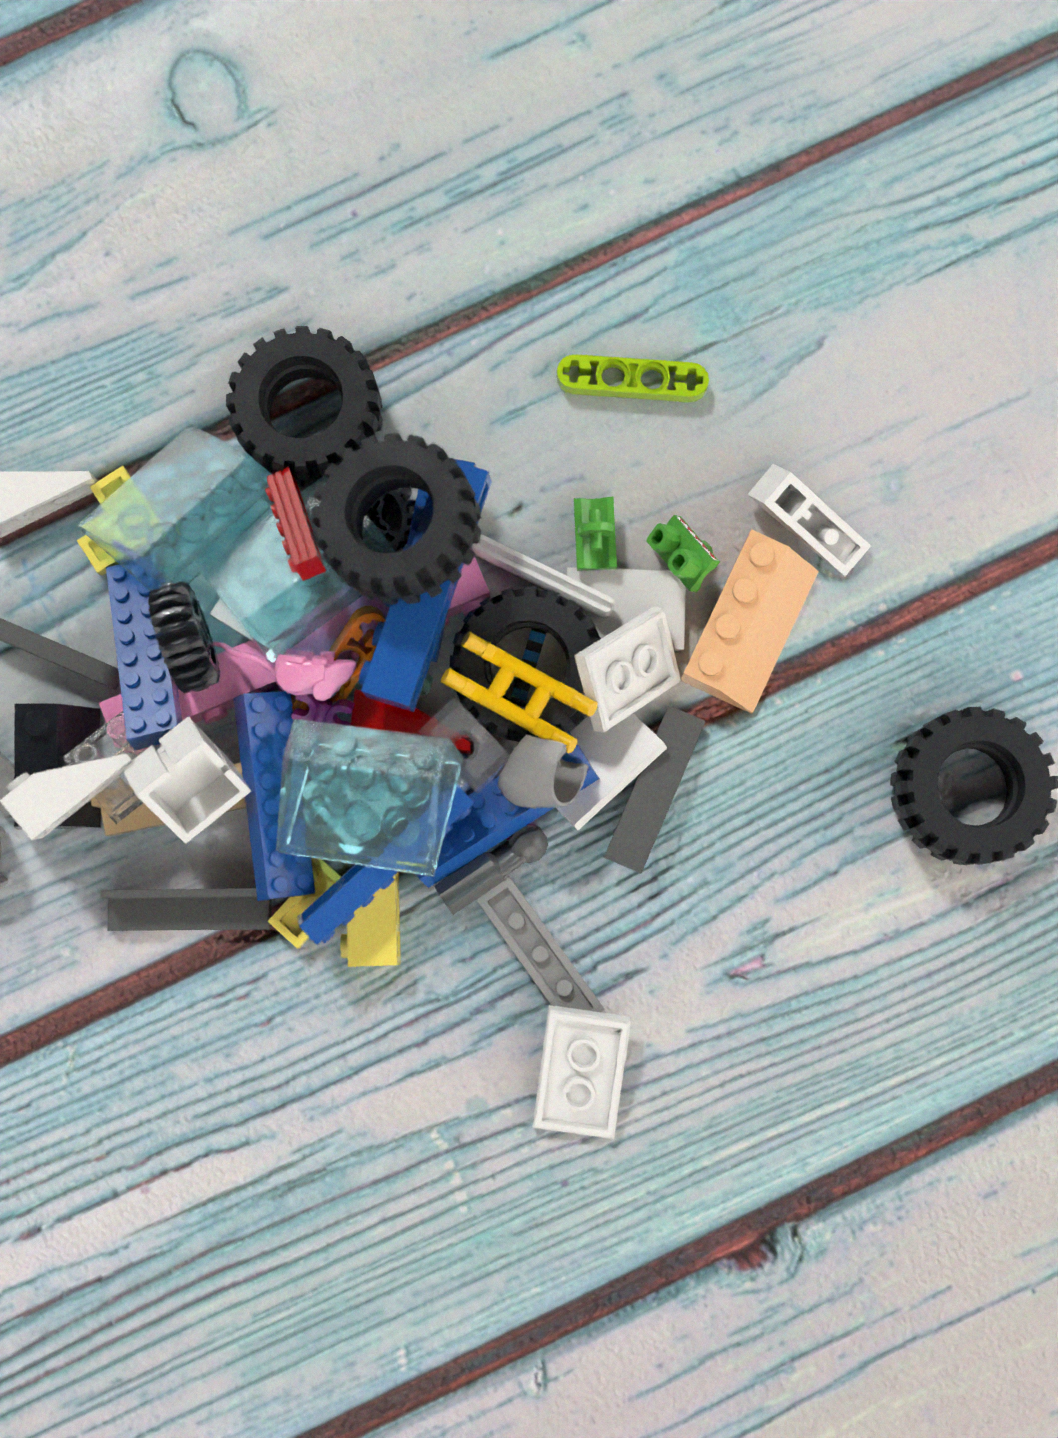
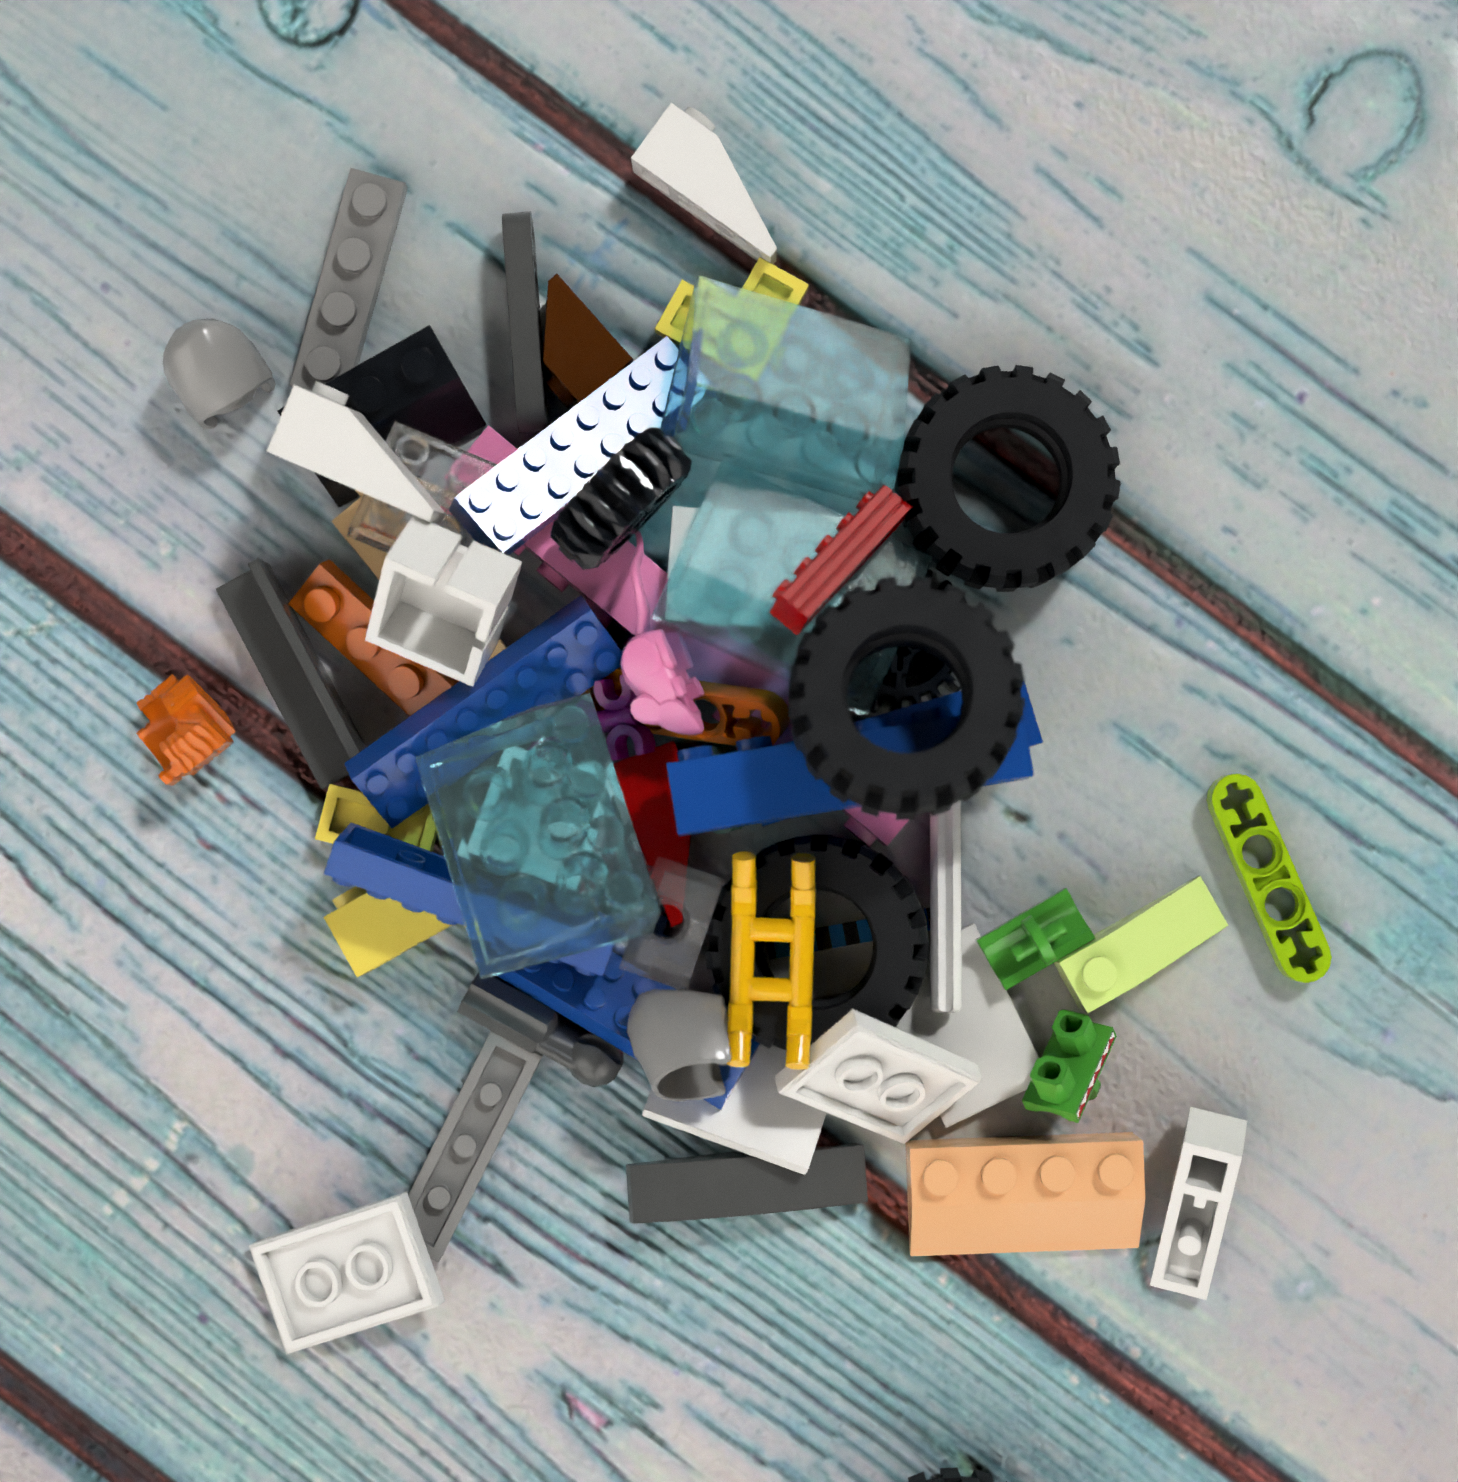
camera: 60 degrees right, 5 degrees up
(82, 624) = (577, 346): none -> reddish brown slope
(171, 857) = (342, 616): none -> orange plate
(182, 996) = (183, 727): none -> orange hair
(632, 476) = (1140, 945): none -> yellowish green slope

